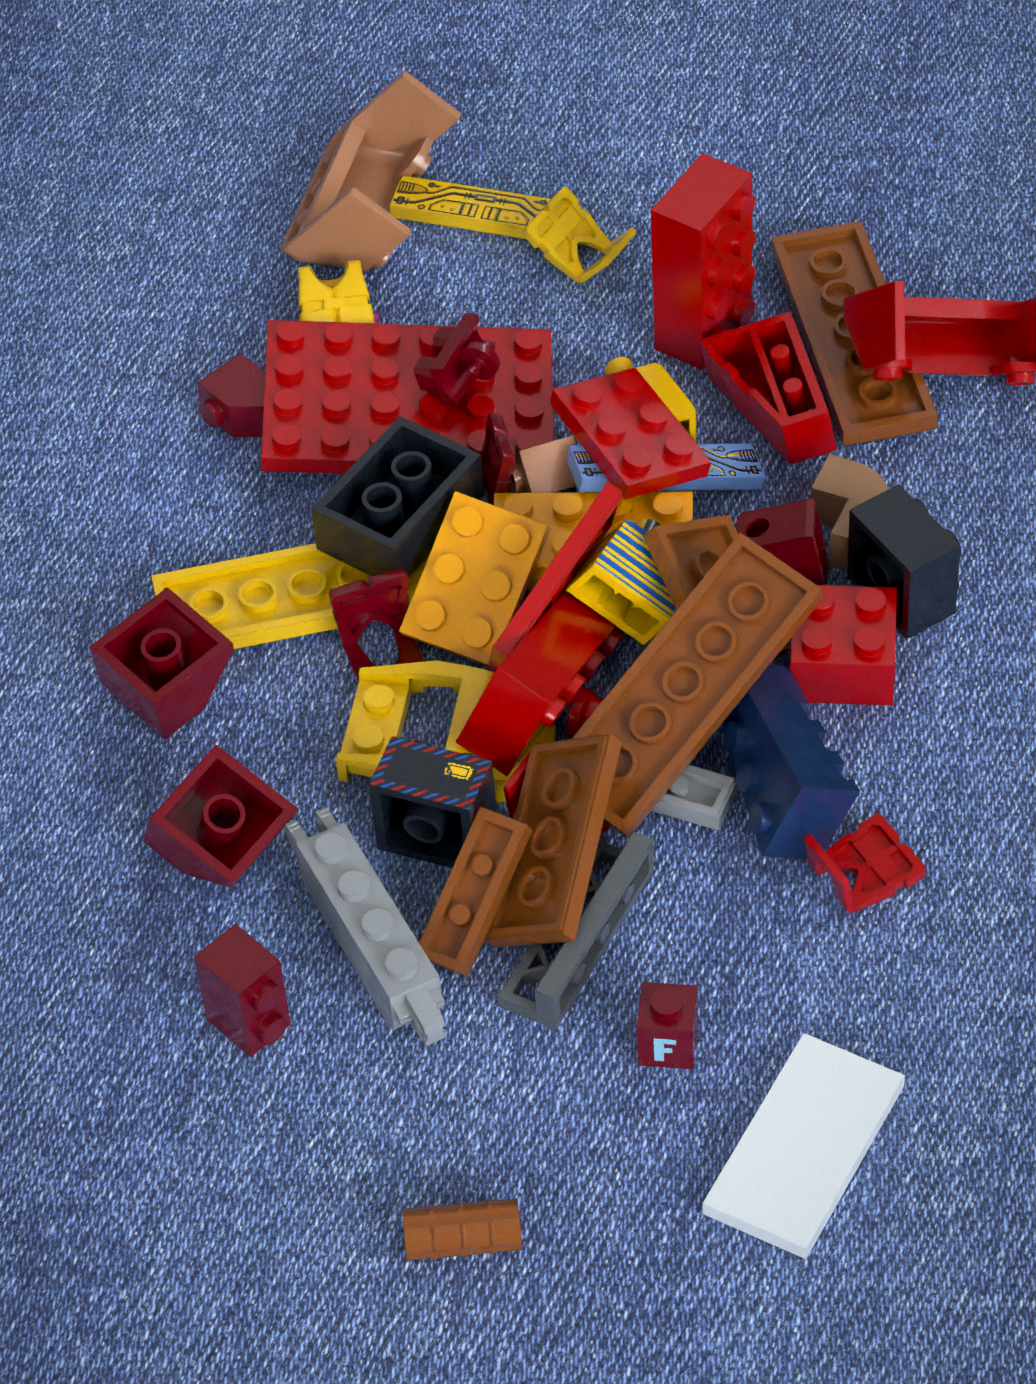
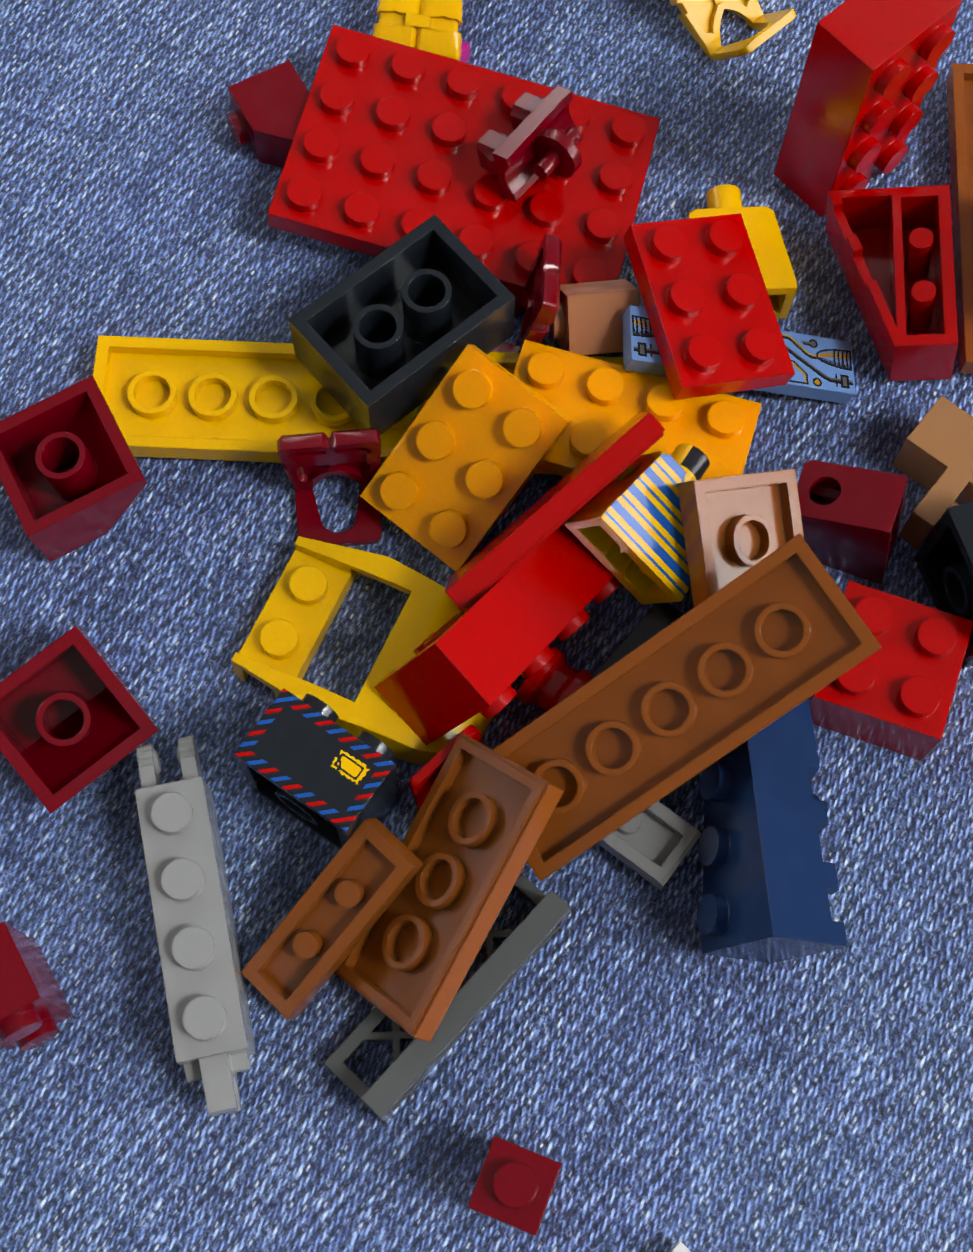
camera: 10 degrees right, 20 degrees up
(876, 858) = (844, 999): red piece -> none

